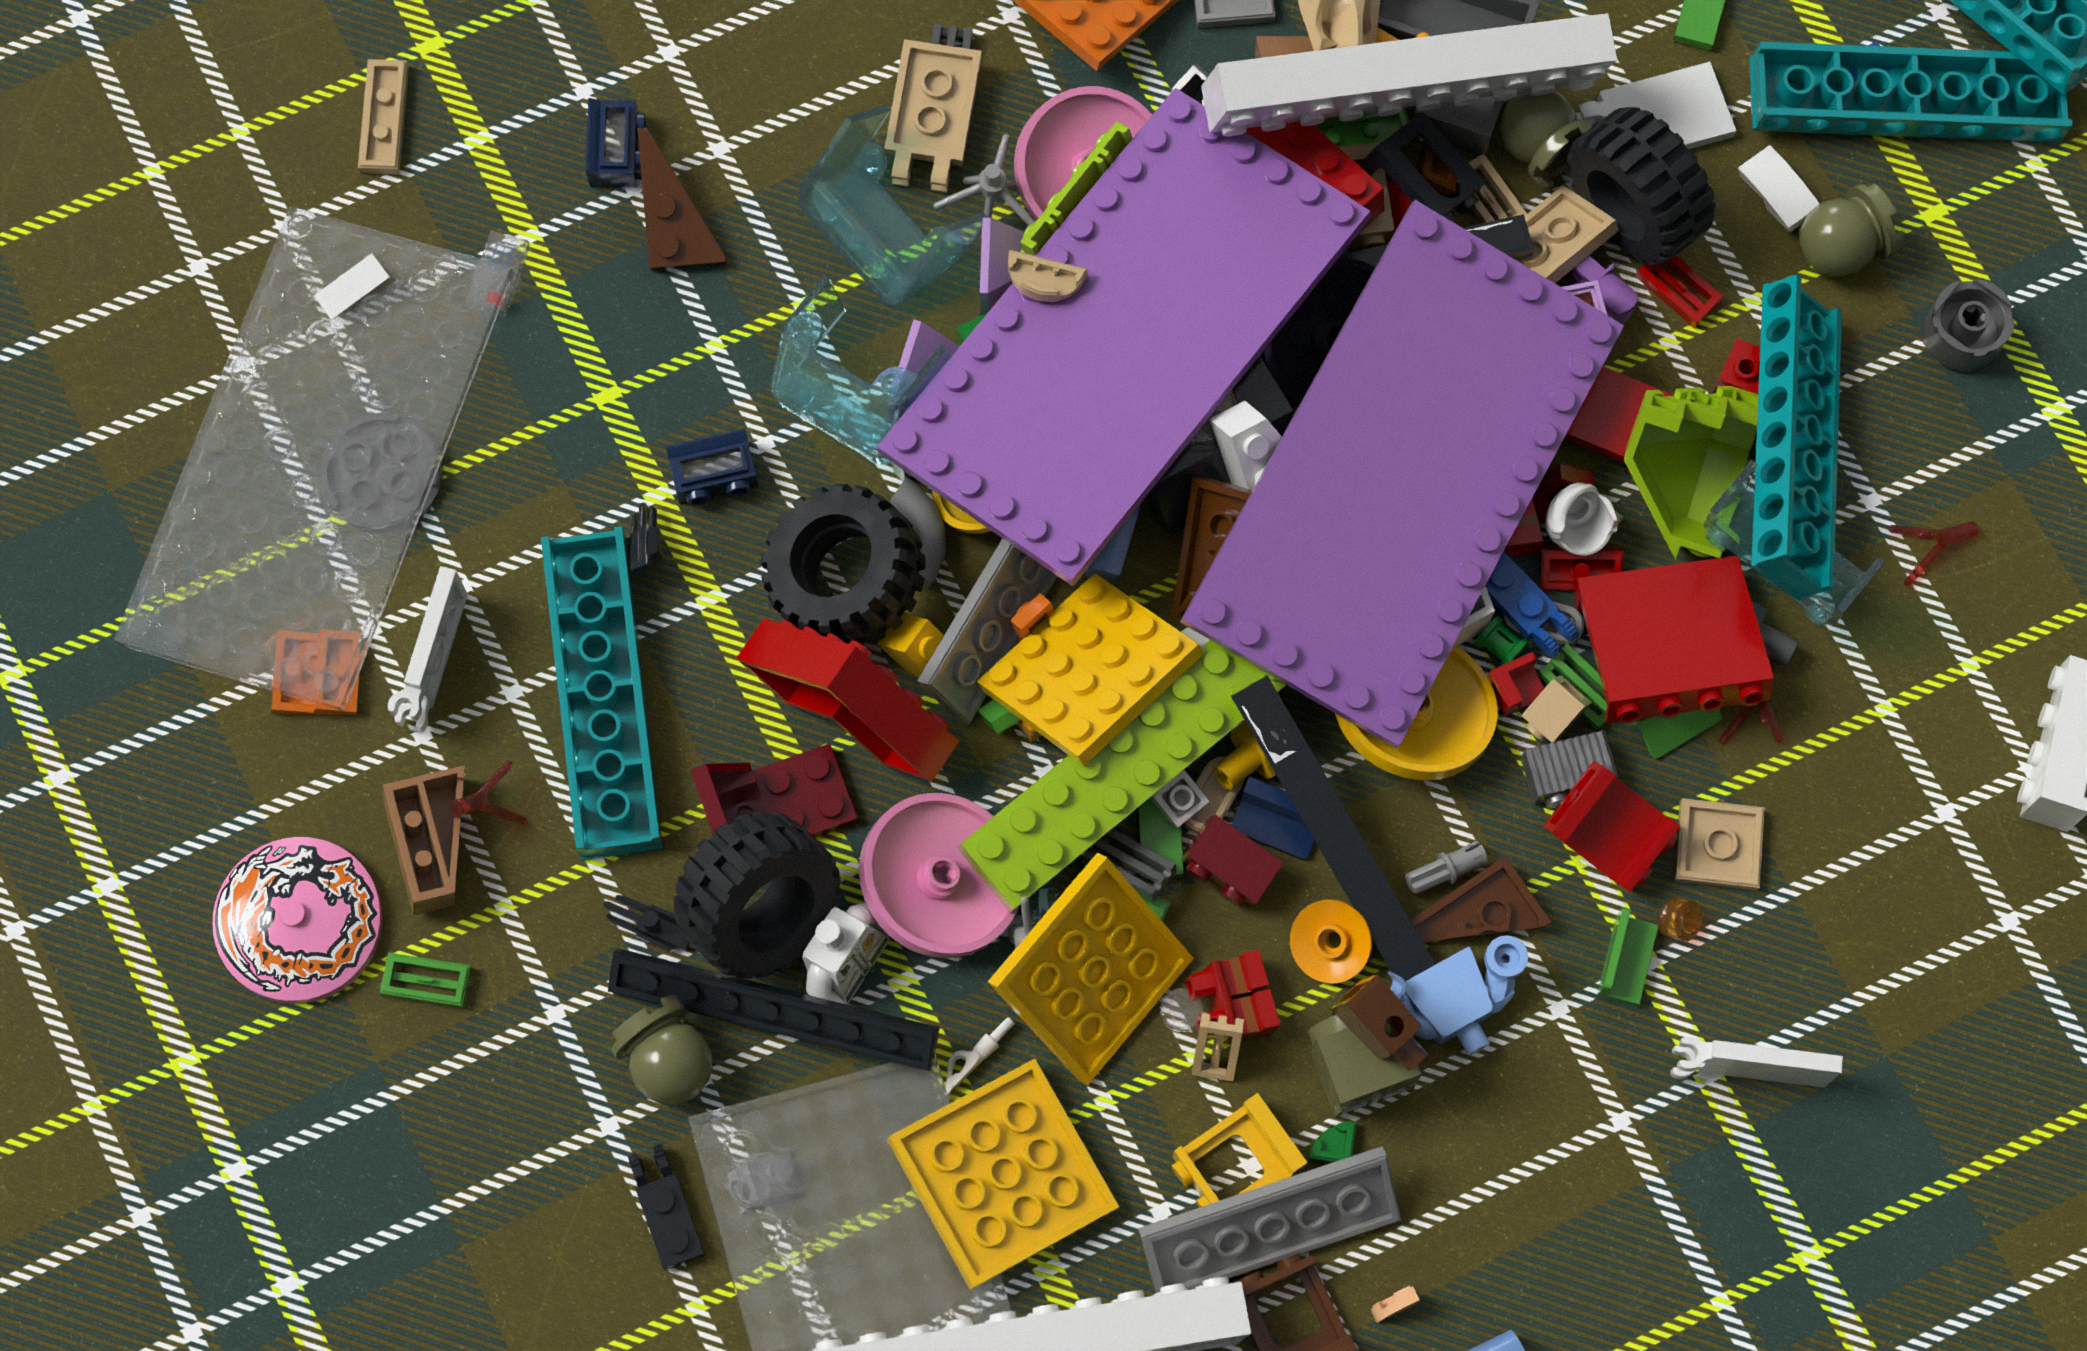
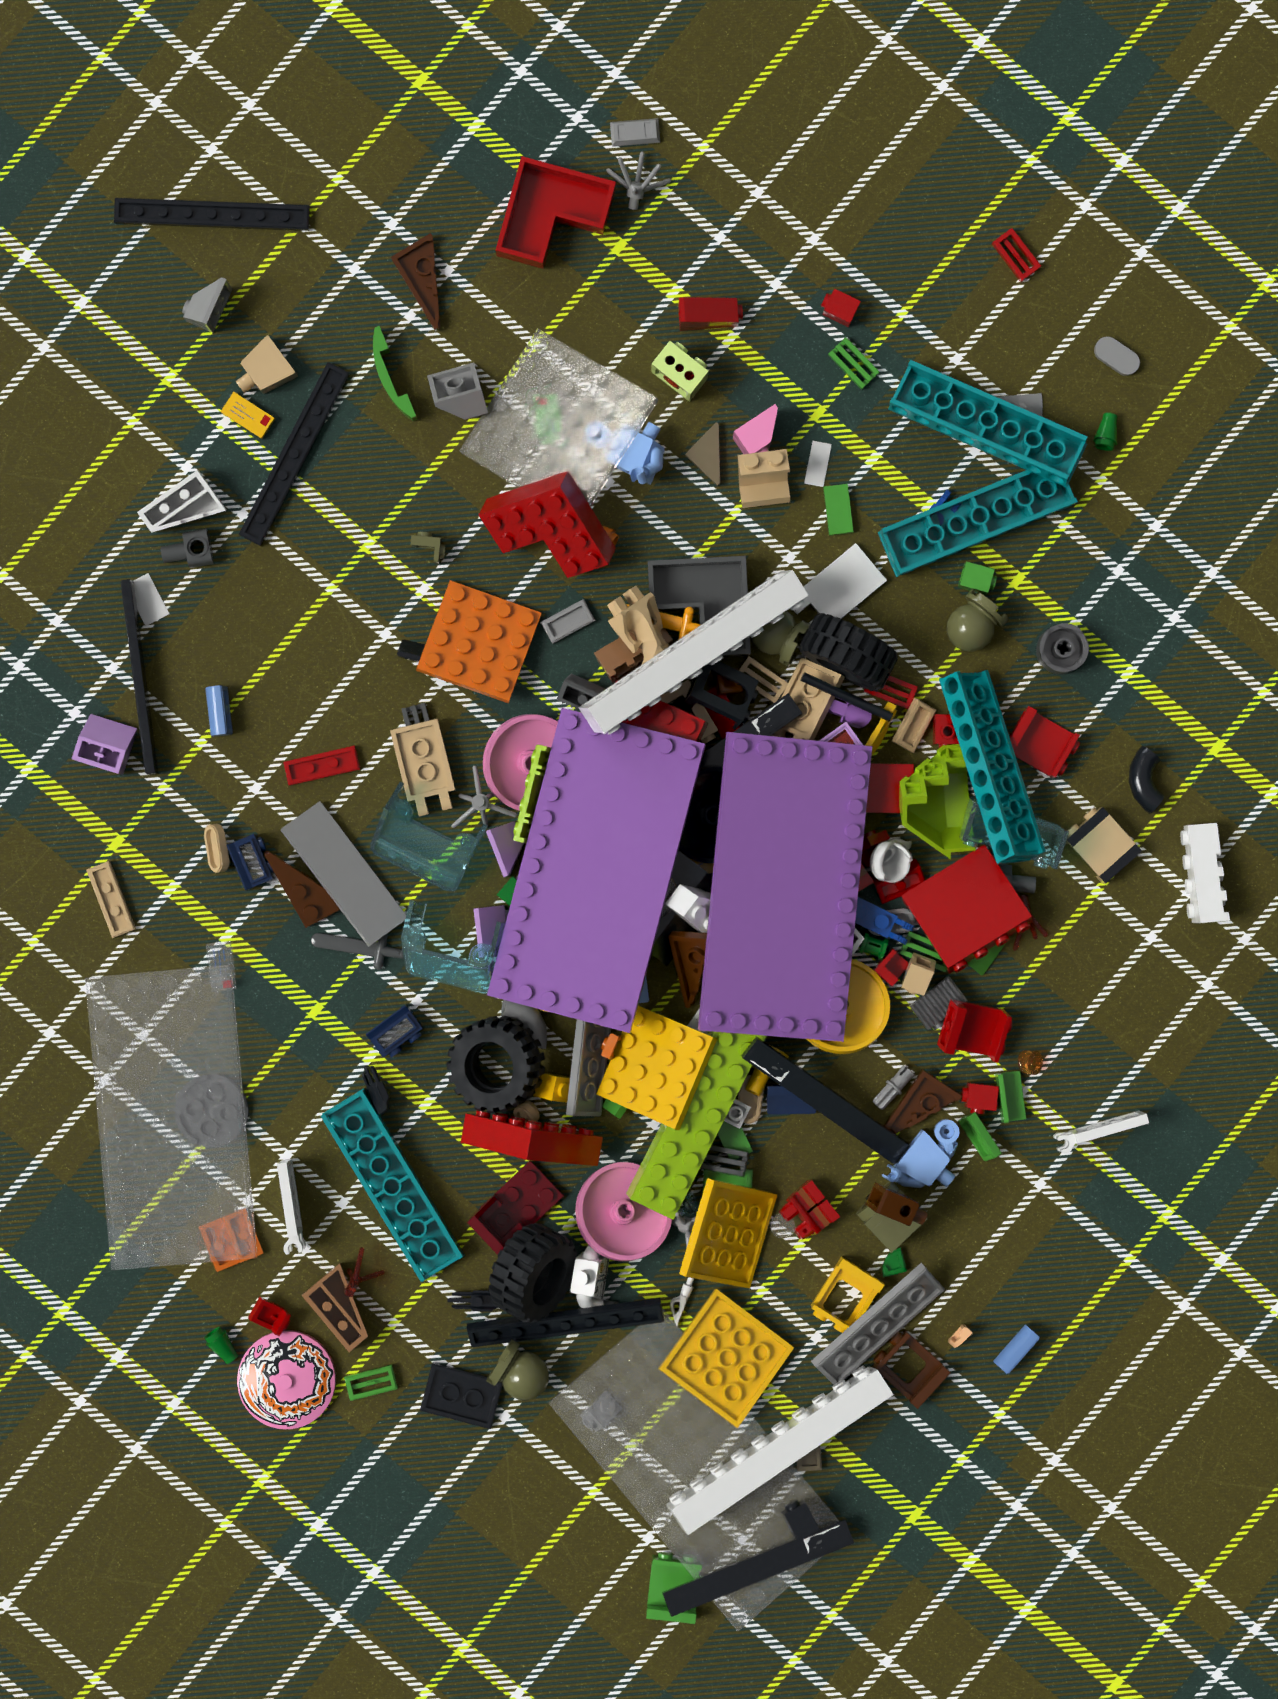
camera: 25 degrees left, 15 degrees up
(223, 821) = (221, 1344): none -> green cone
(319, 807) = (270, 1316): none -> red bracket
(351, 286) = (144, 1013): white sticker -> none
(556, 1061) = (460, 1395): none -> black tile
(572, 103) = (216, 848): none -> tan tile
(666, 1212) = (556, 1450): black hinge -> none
(738, 343) = (377, 950): none -> dark grey sword
(742, 213) = (344, 873): none -> light grey tile
(781, 57) = (321, 765): none -> red tile
(1044, 278) = (538, 860): tan tile -> none
(1219, 1029) = (810, 1239): tan tile -> none
(1230, 862) = (776, 1136): dark red brick -> none
(1312, 947) = (845, 1164): light orange dish -> none
(1554, 999) = (979, 1136): none -> bright green tile
(1579, 938) = (980, 1097): none -> red brick
(1611, 252) = (846, 696): none -> black bar
(1640, 332) = (881, 729): none -> yellow piece
(1695, 349) = (914, 725): none -> tan tile
(1719, 844) = (1035, 1009): tan tile -> none
(1779, 187) = (925, 606): white slope -> none
(1876, 168) = (977, 578): none -> bright green brick
(1883, 453) = (1042, 743): none -> red panel
(1924, 635) = (1102, 844): none -> tan panel
(1943, 538) = (1091, 783): clear red plant -> none
(2020, 566) = (1141, 779): none -> black cylinder

